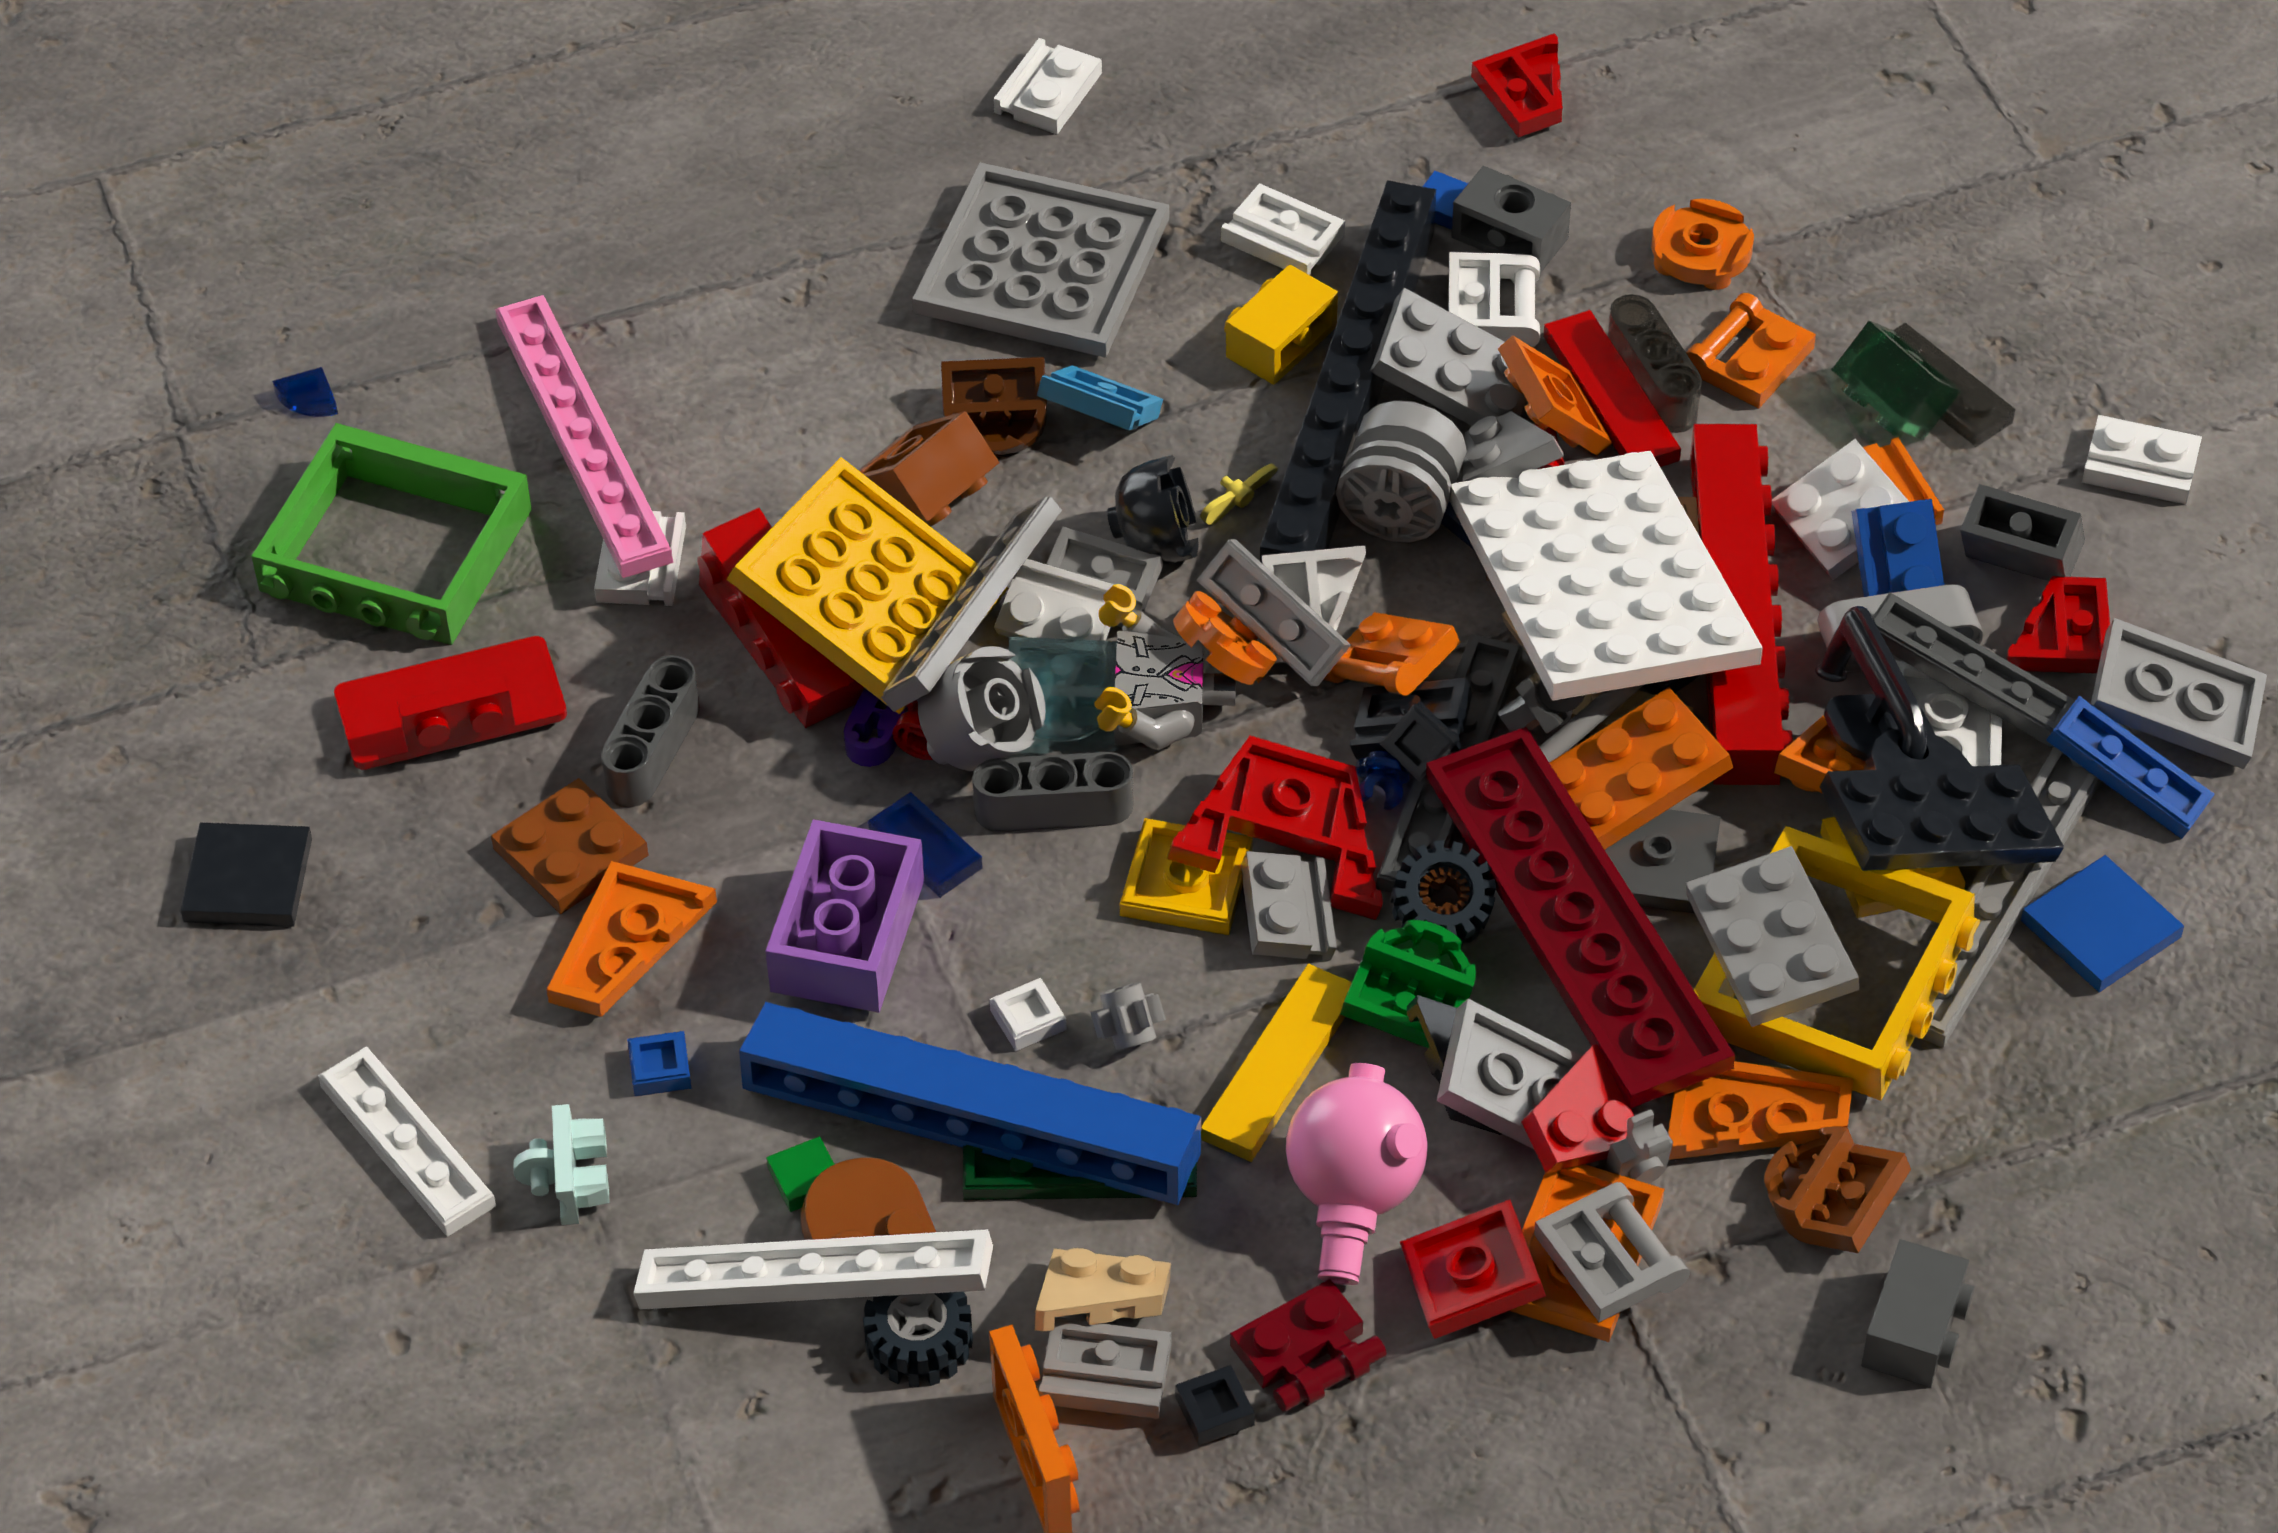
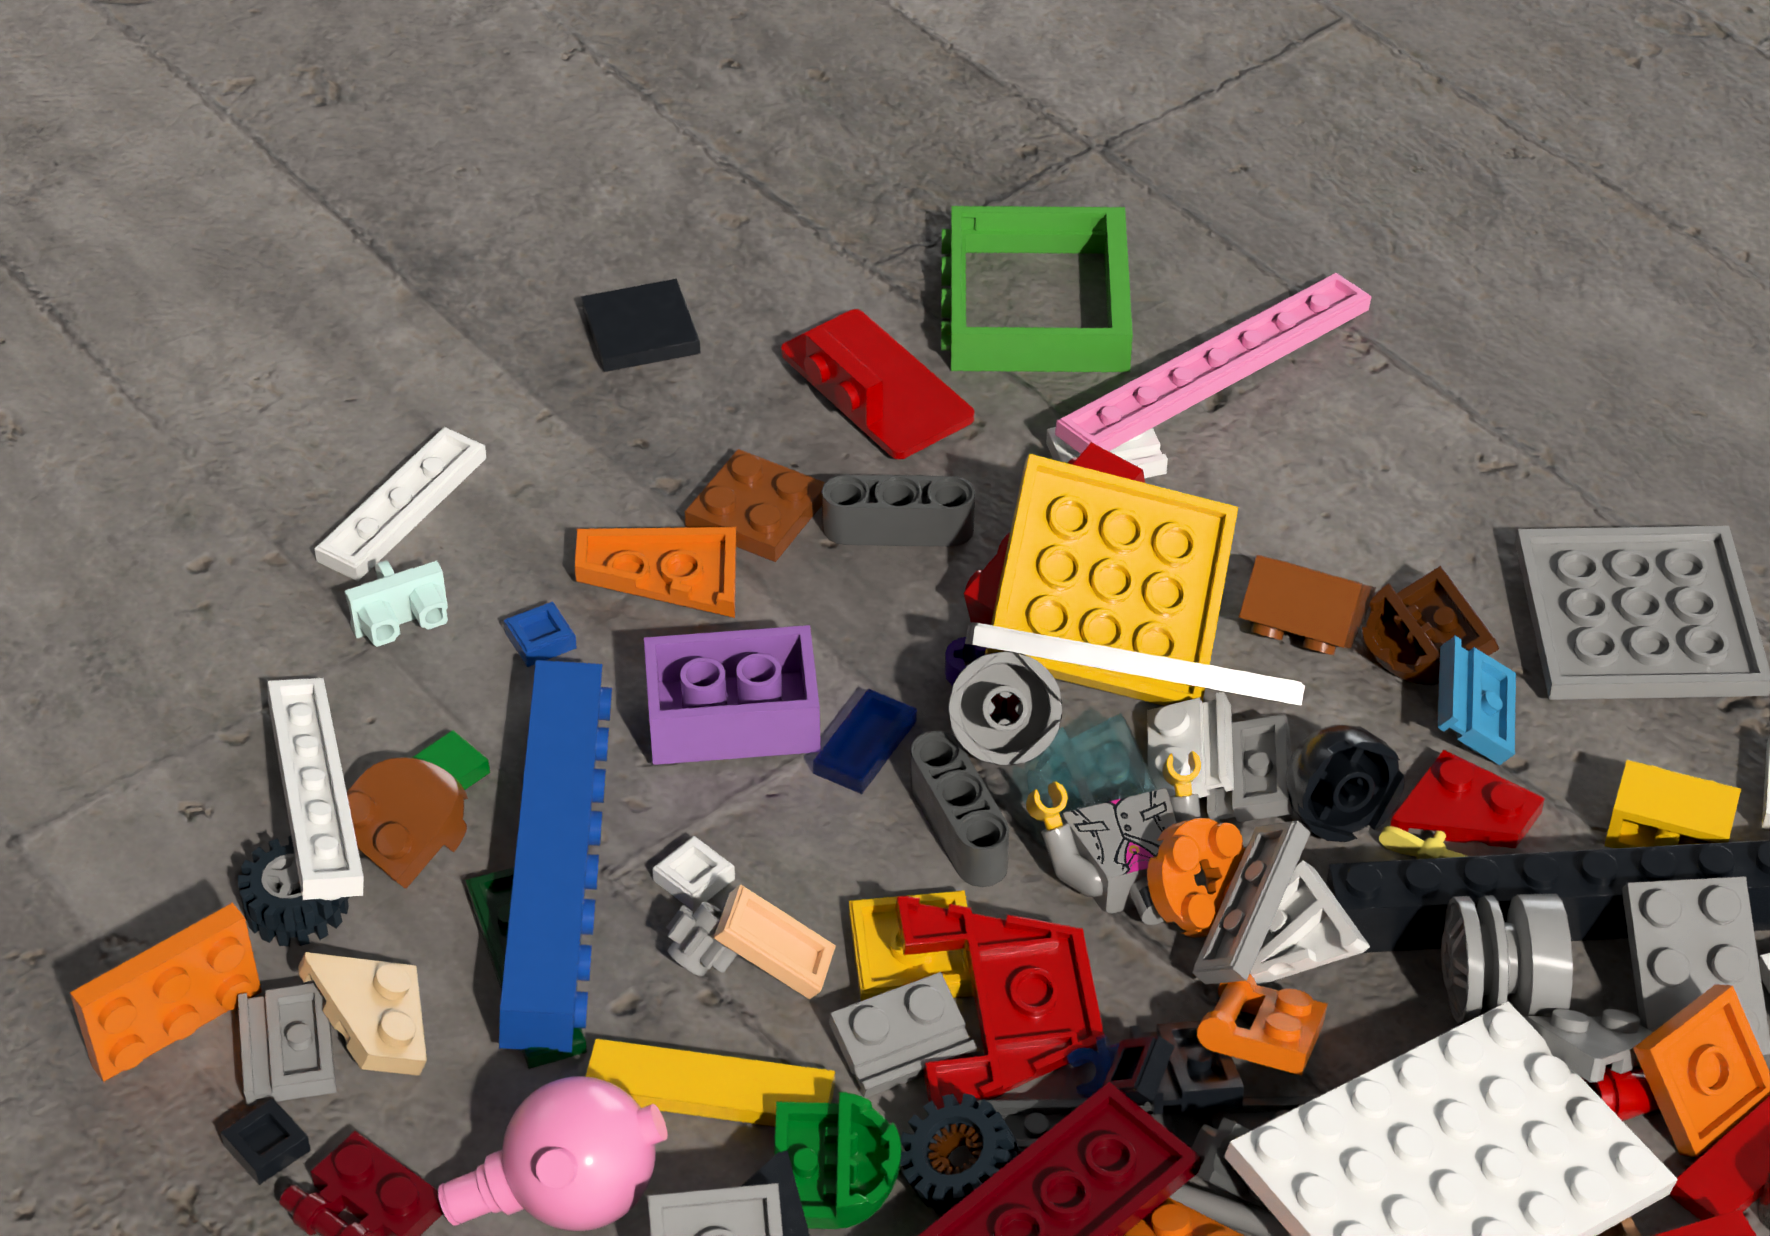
camera: 70 degrees right, 5 degrees down
(306, 393) = (1177, 199): clear blue tile -> none
(1159, 960) = (774, 942): none -> light nougat tile
(1202, 446) = (1469, 804): none -> red wing

